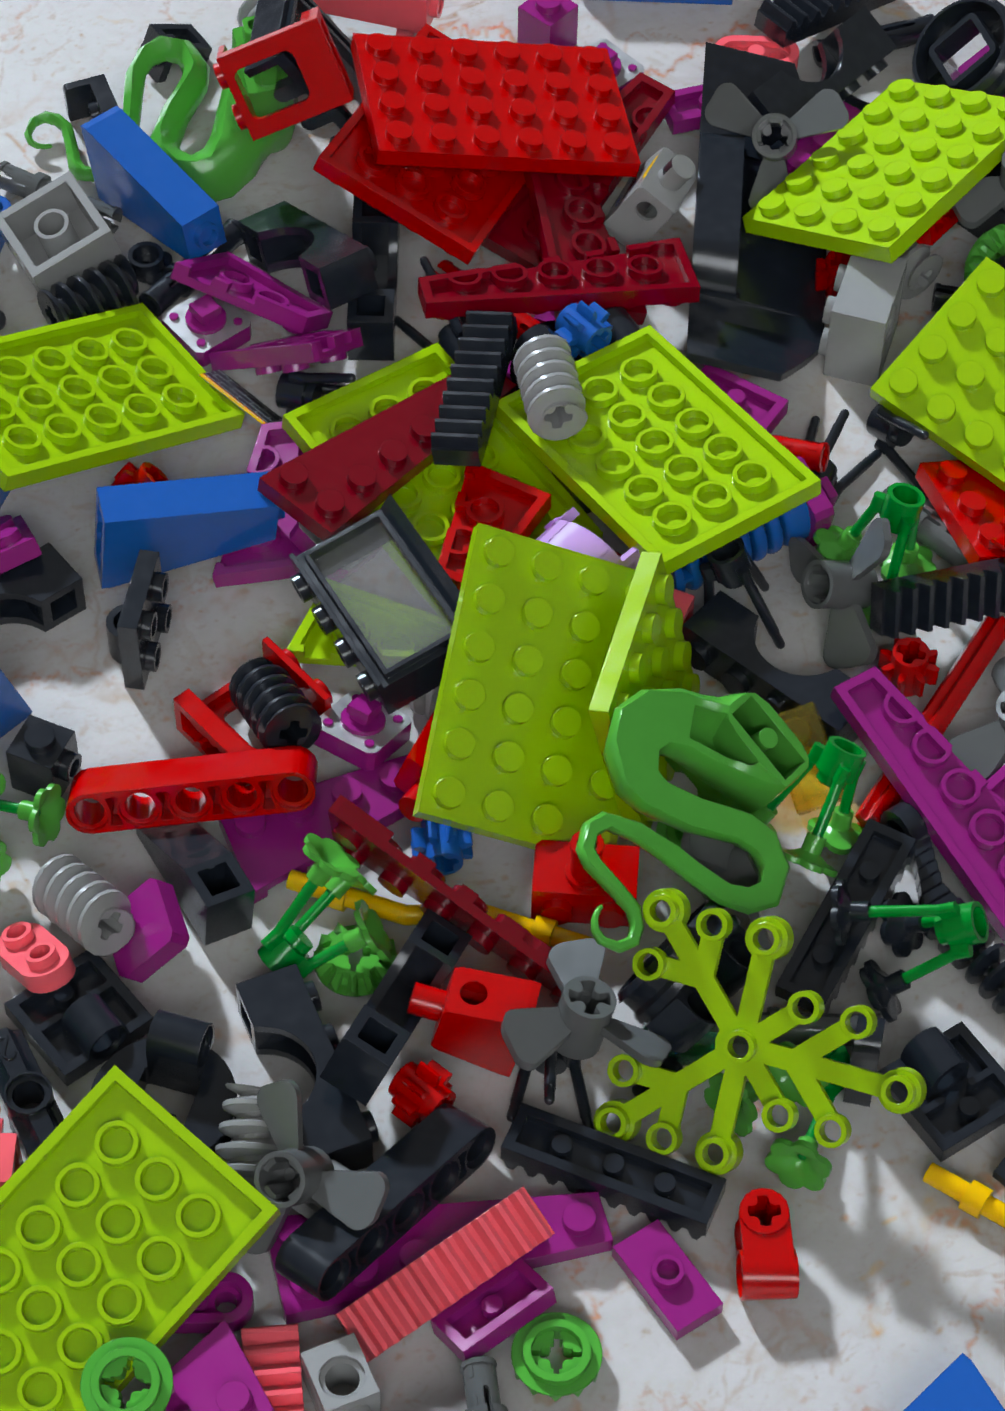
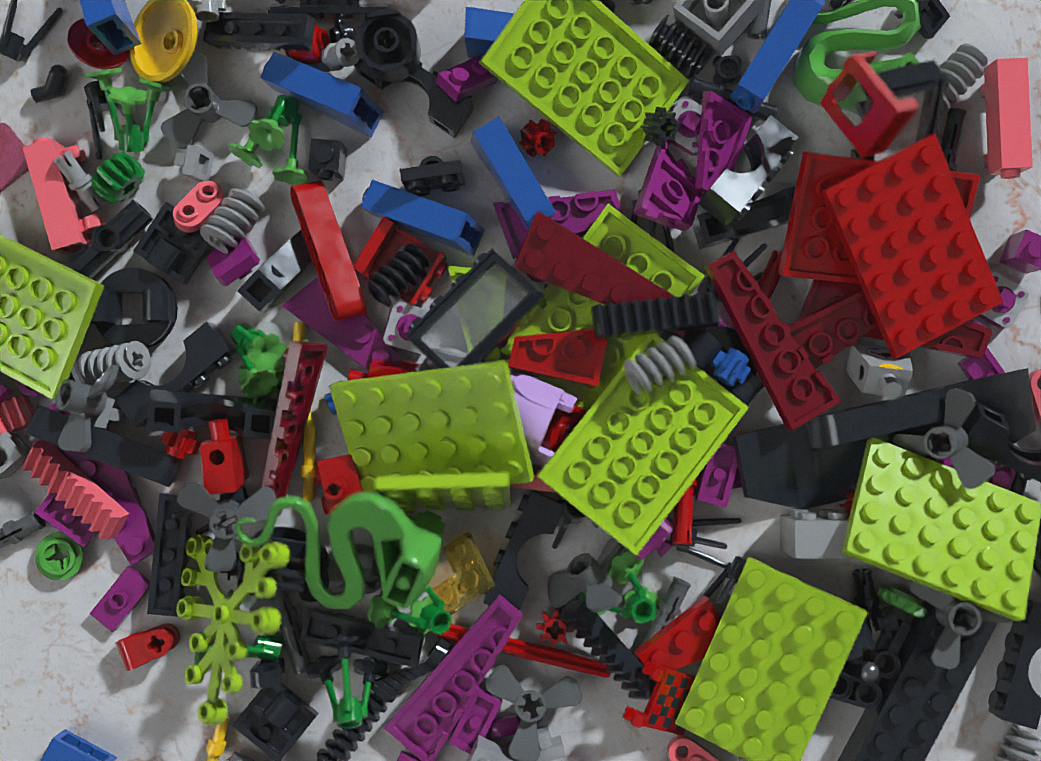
camera: 75 degrees right, 35 degrees up
(196, 338) = (660, 126): none -> black gear
(197, 652) = (423, 217): none -> blue slope
(240, 396) = (635, 168): black sticker -> none

